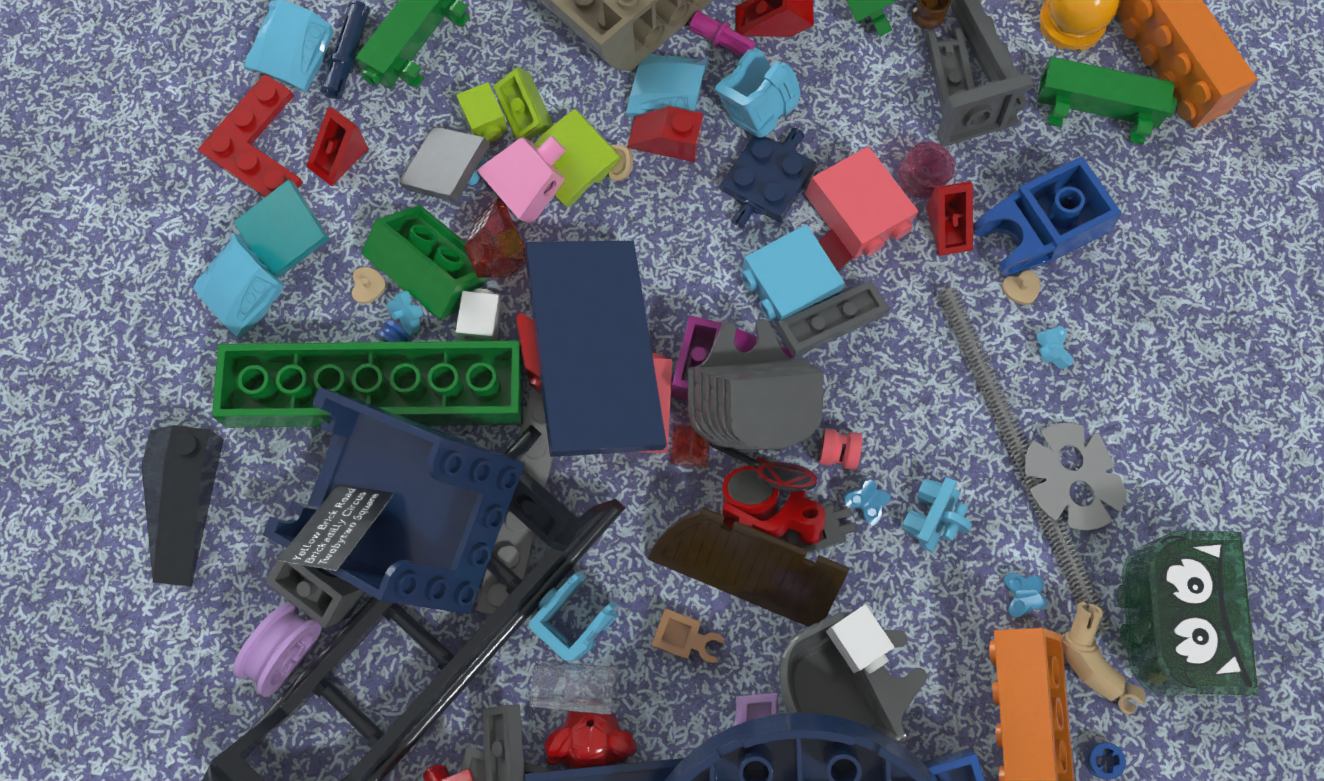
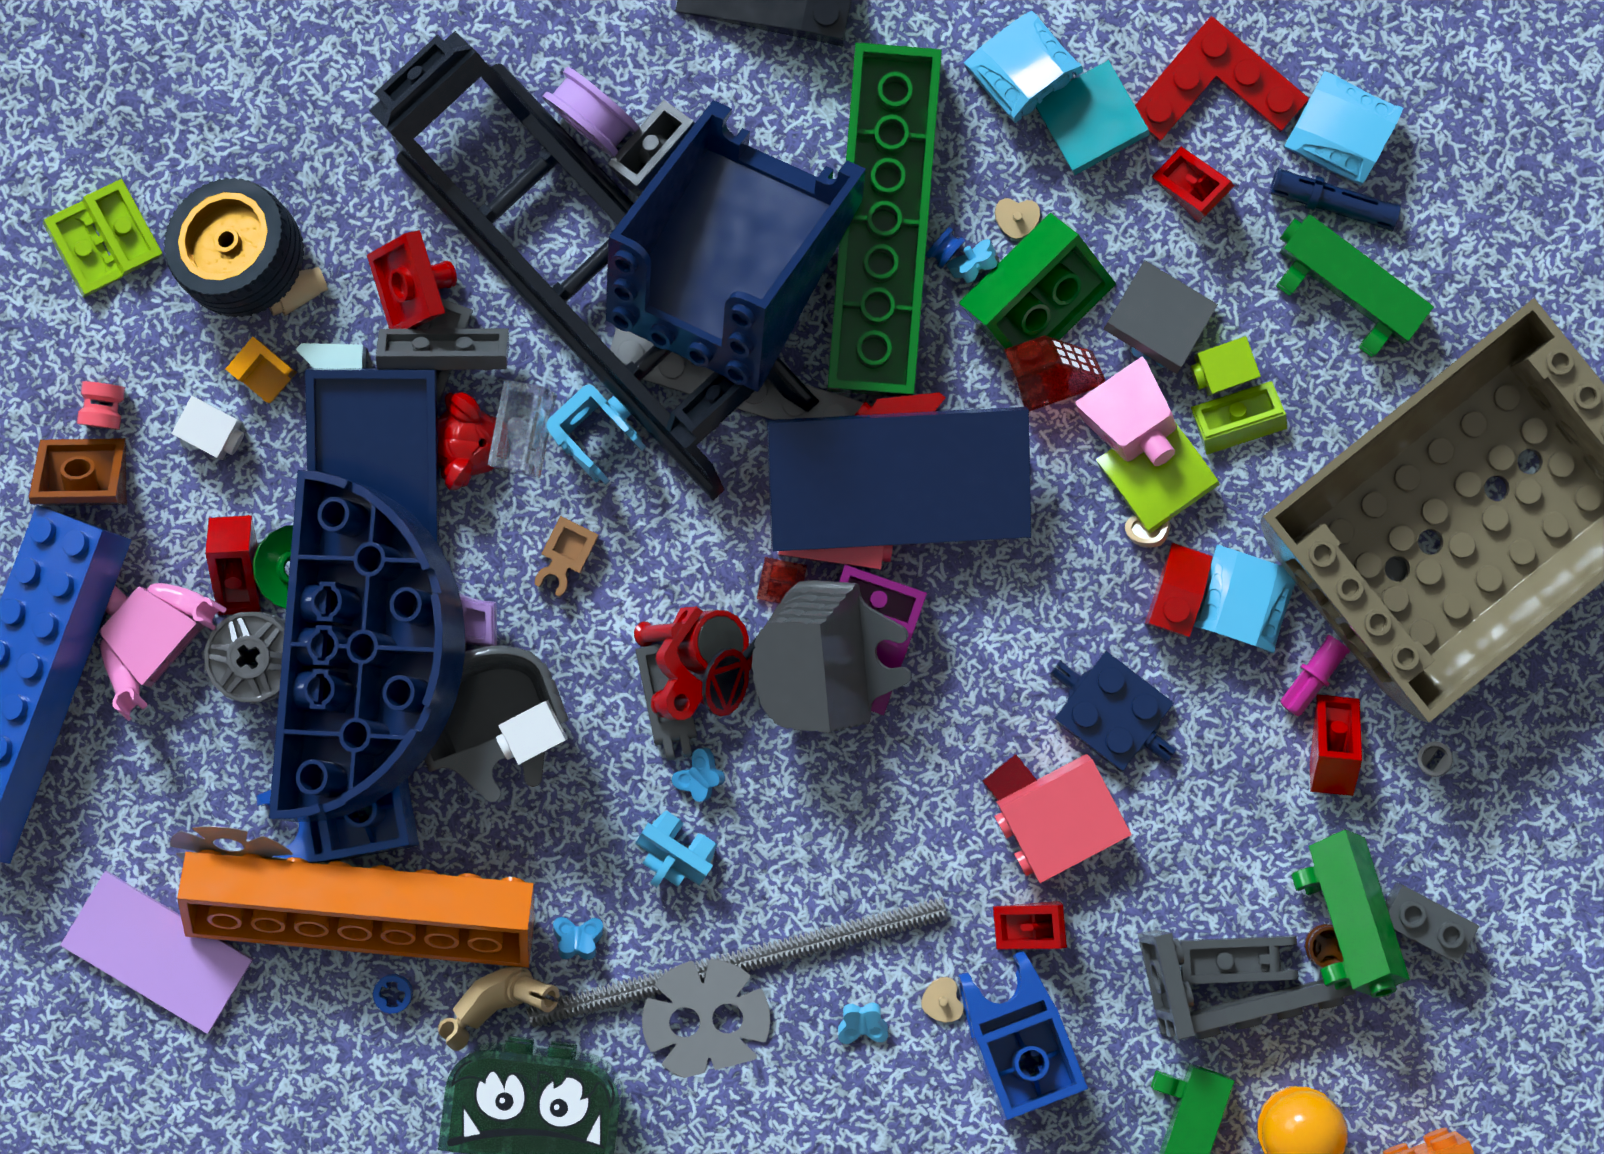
camera: 95 degrees right, 15 degrees up
(336, 527) = (707, 184): black sticker -> none
(479, 316) = (959, 348): white brick -> none
(751, 566) = (633, 632): dark brown piece -> none
(759, 93) = (1211, 732): medium azure piece -> none
(791, 275) = (975, 721): medium azure piece -> none
(832, 318) = (919, 765): dark grey plate -> none
(832, 446) = (763, 742): coral wheel -> none
(935, 159) = (1101, 885): clear pink wheel -> none

